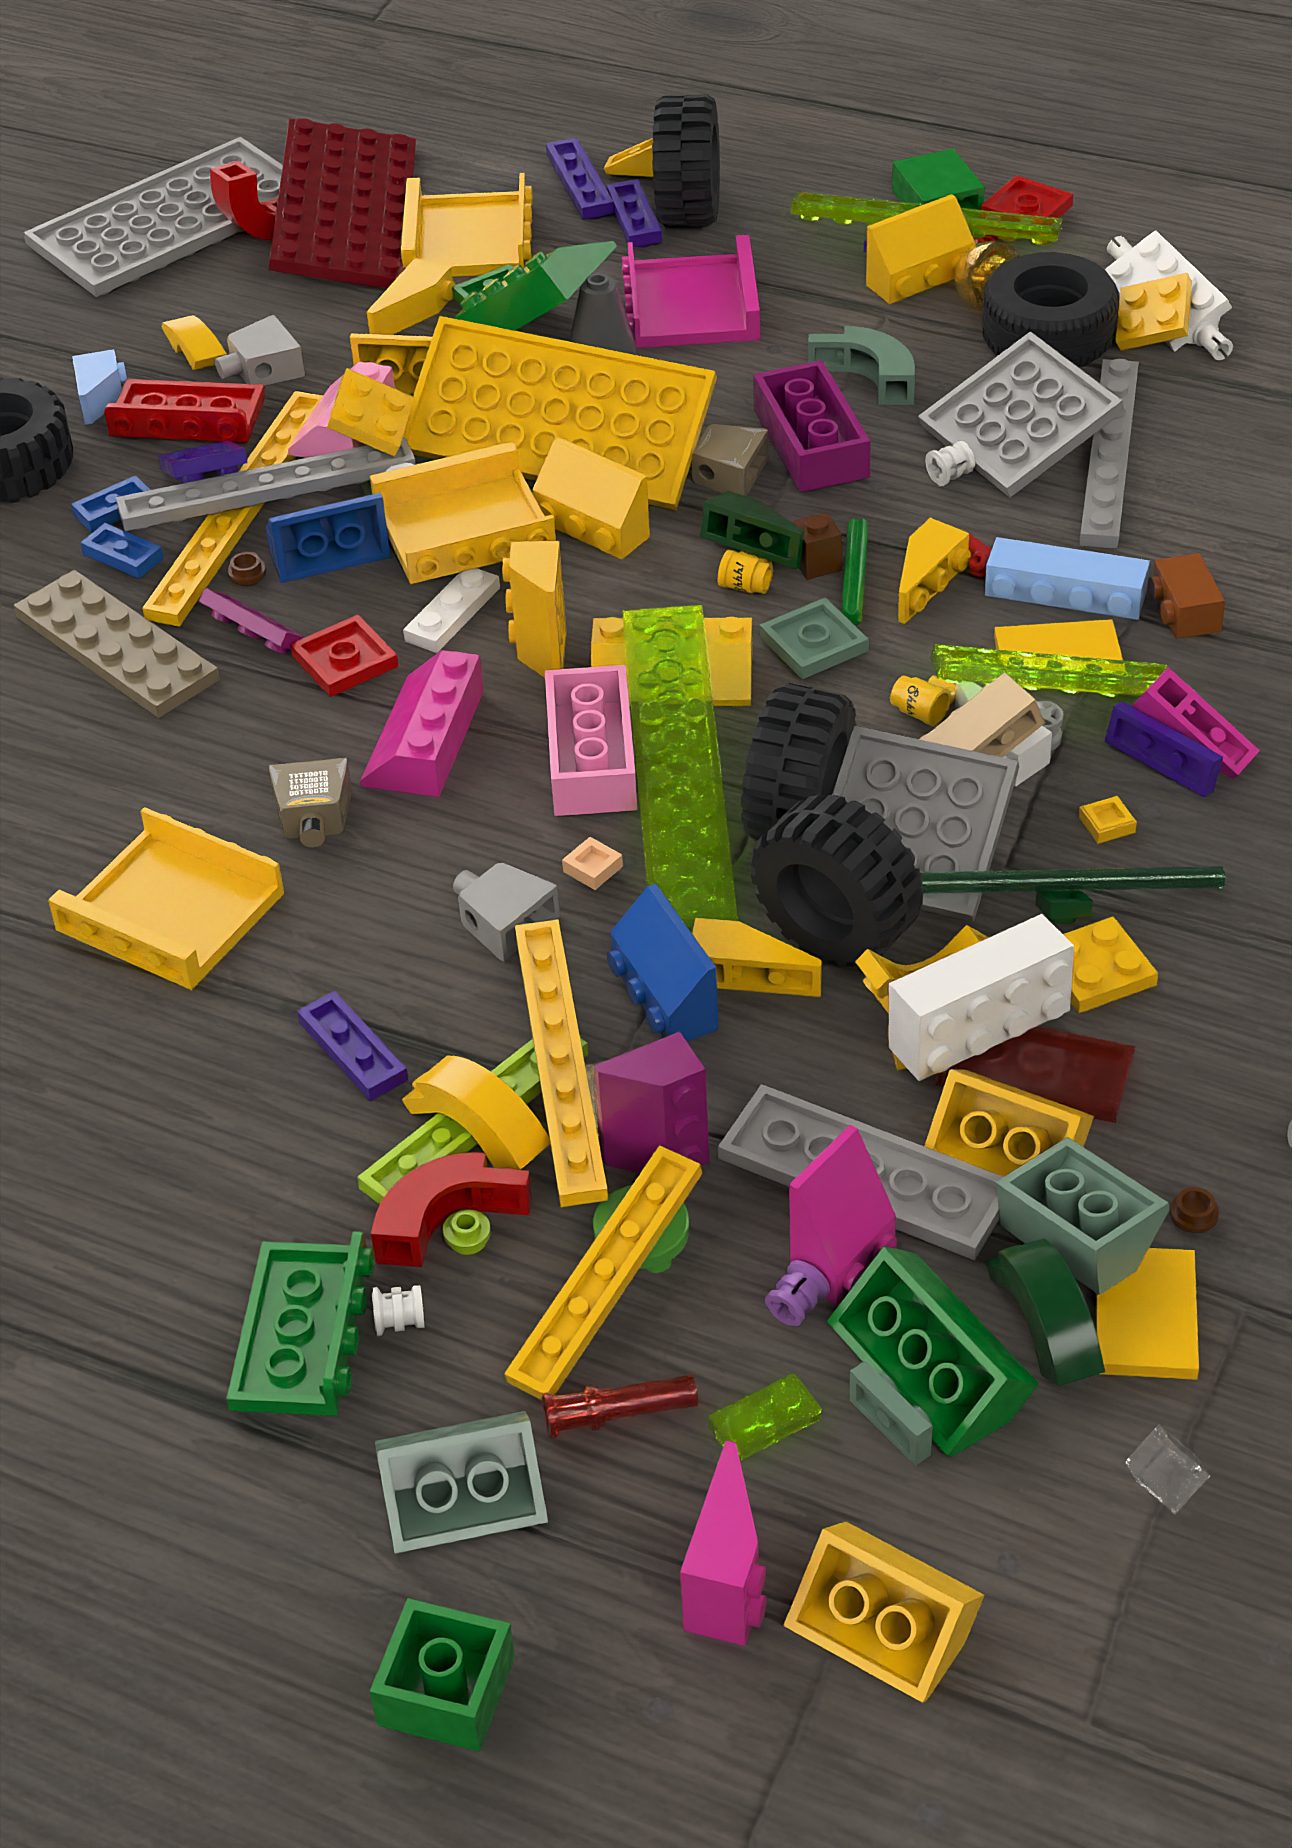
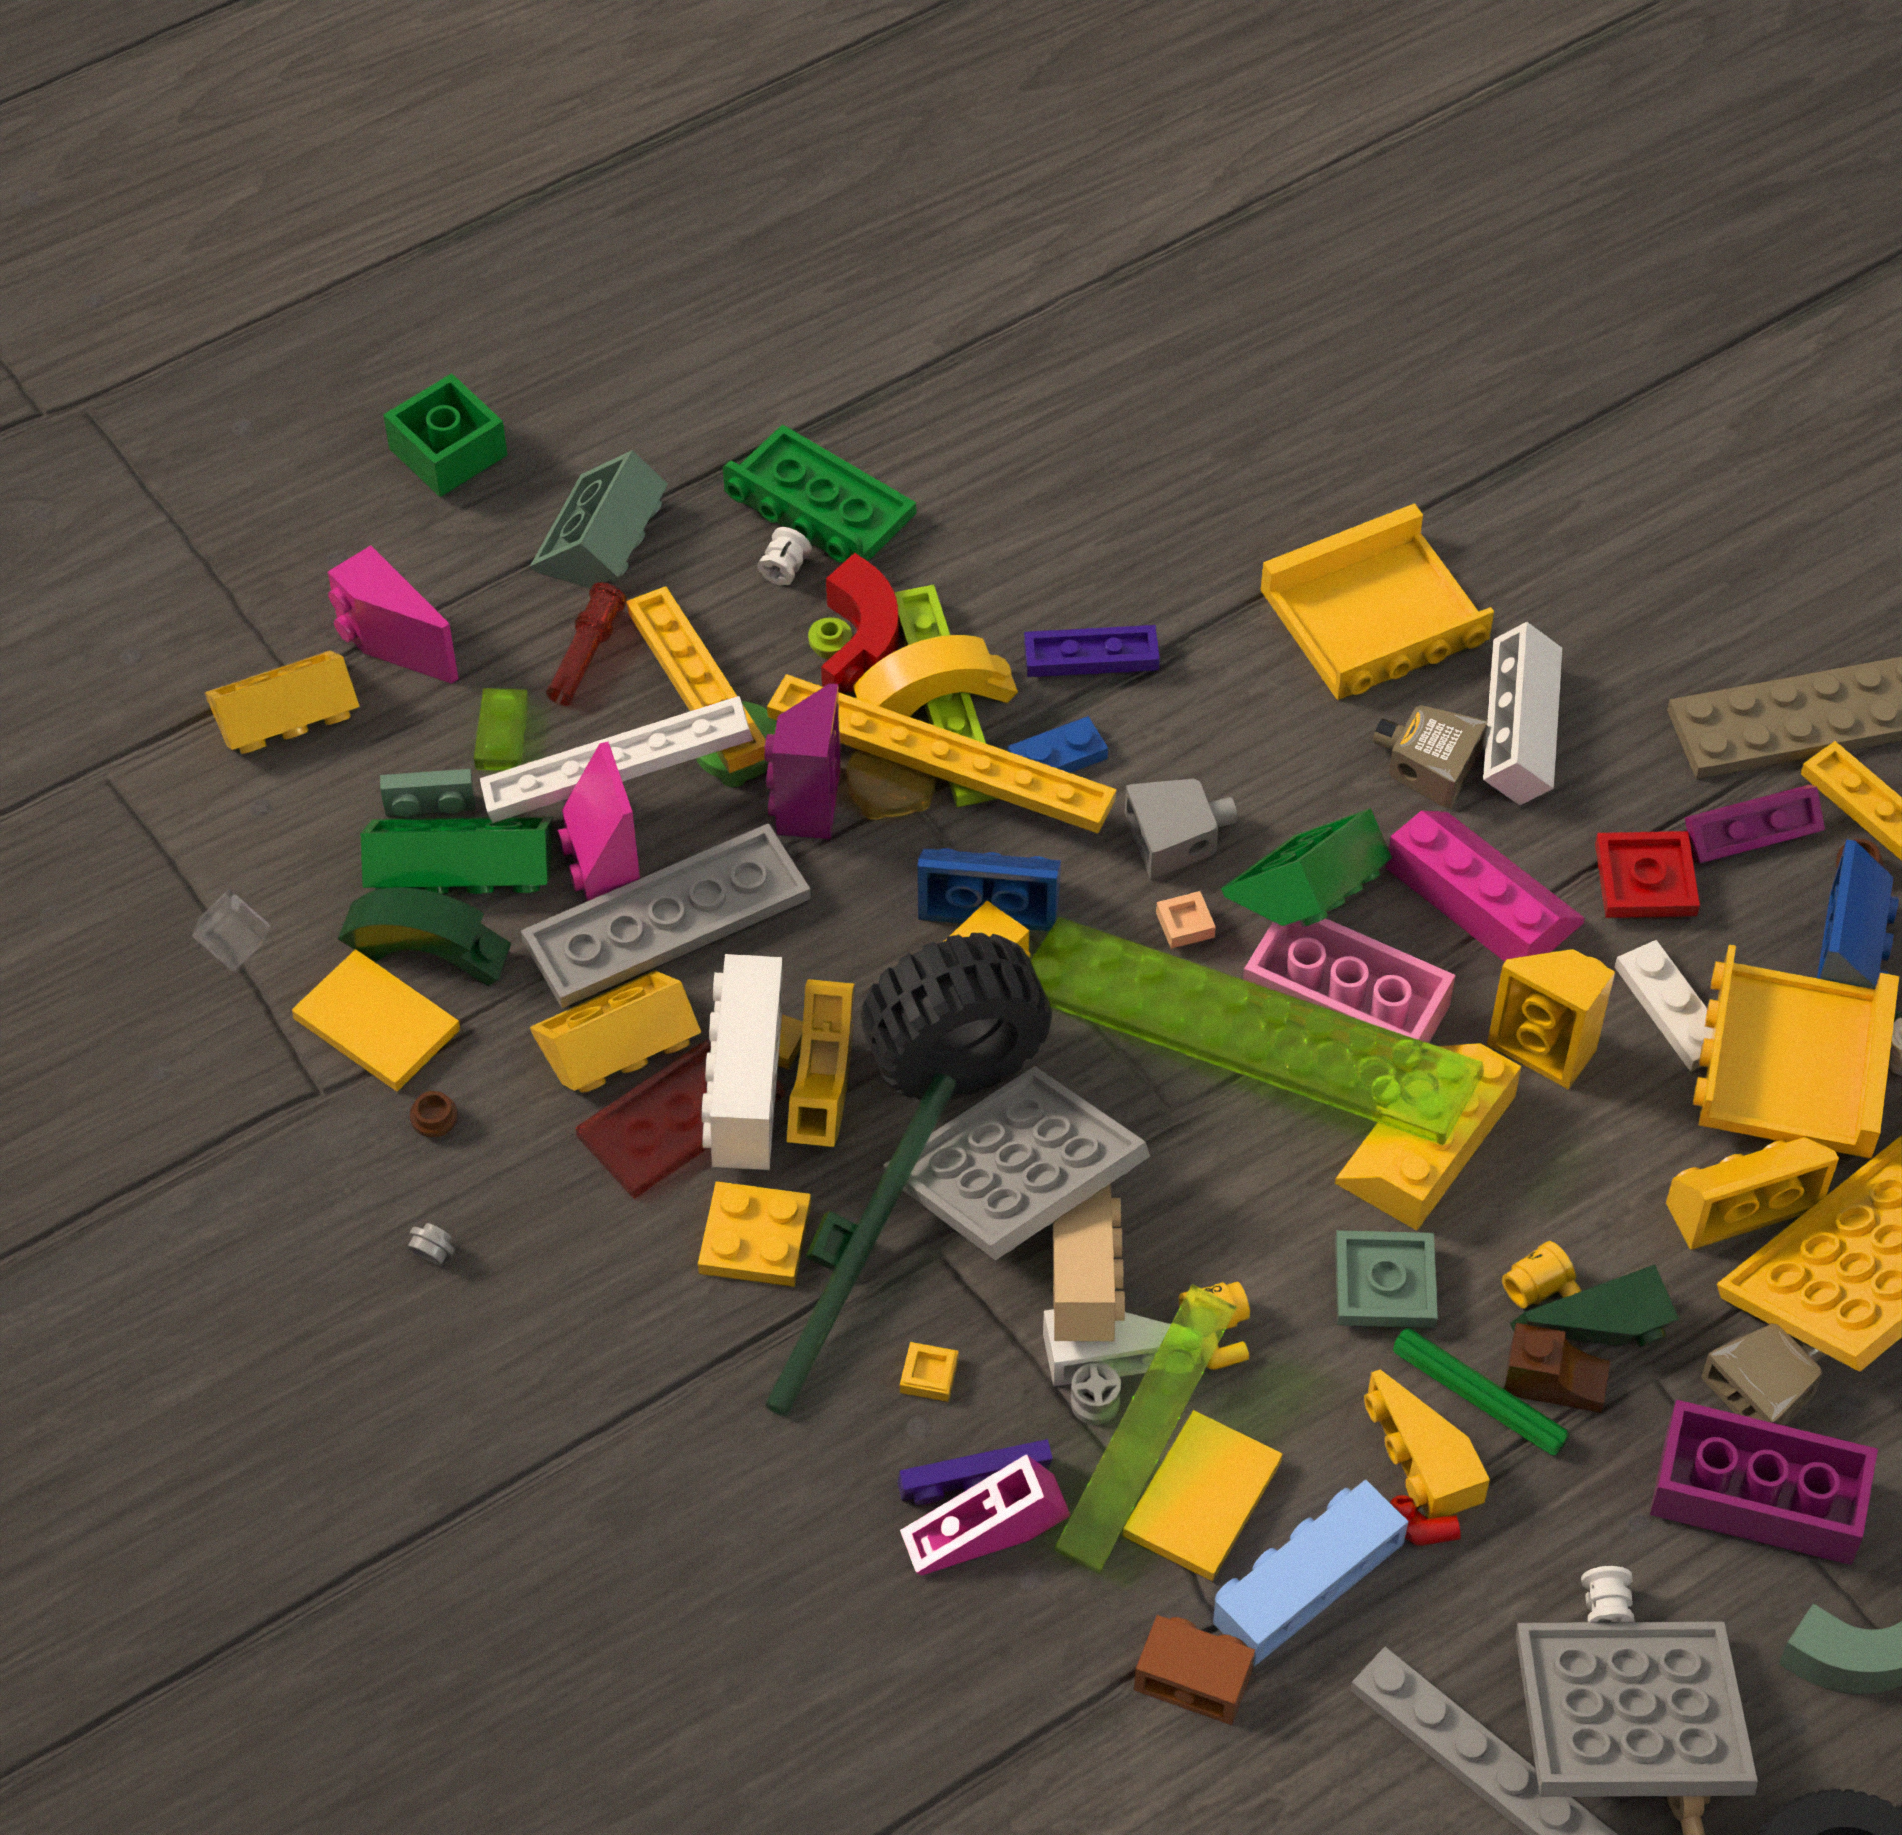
camera: 120 degrees right, 10 degrees up
(238, 759) = (1523, 714): none -> white brick
(477, 1022) = (1065, 747): none -> blue plate
(510, 776) = (1313, 871): none -> green slope
(764, 1247) = (634, 752): none -> white plate
(794, 752) = (1134, 1068): black tyre -> none
(1085, 1210) = (475, 988): sand green slope -> none

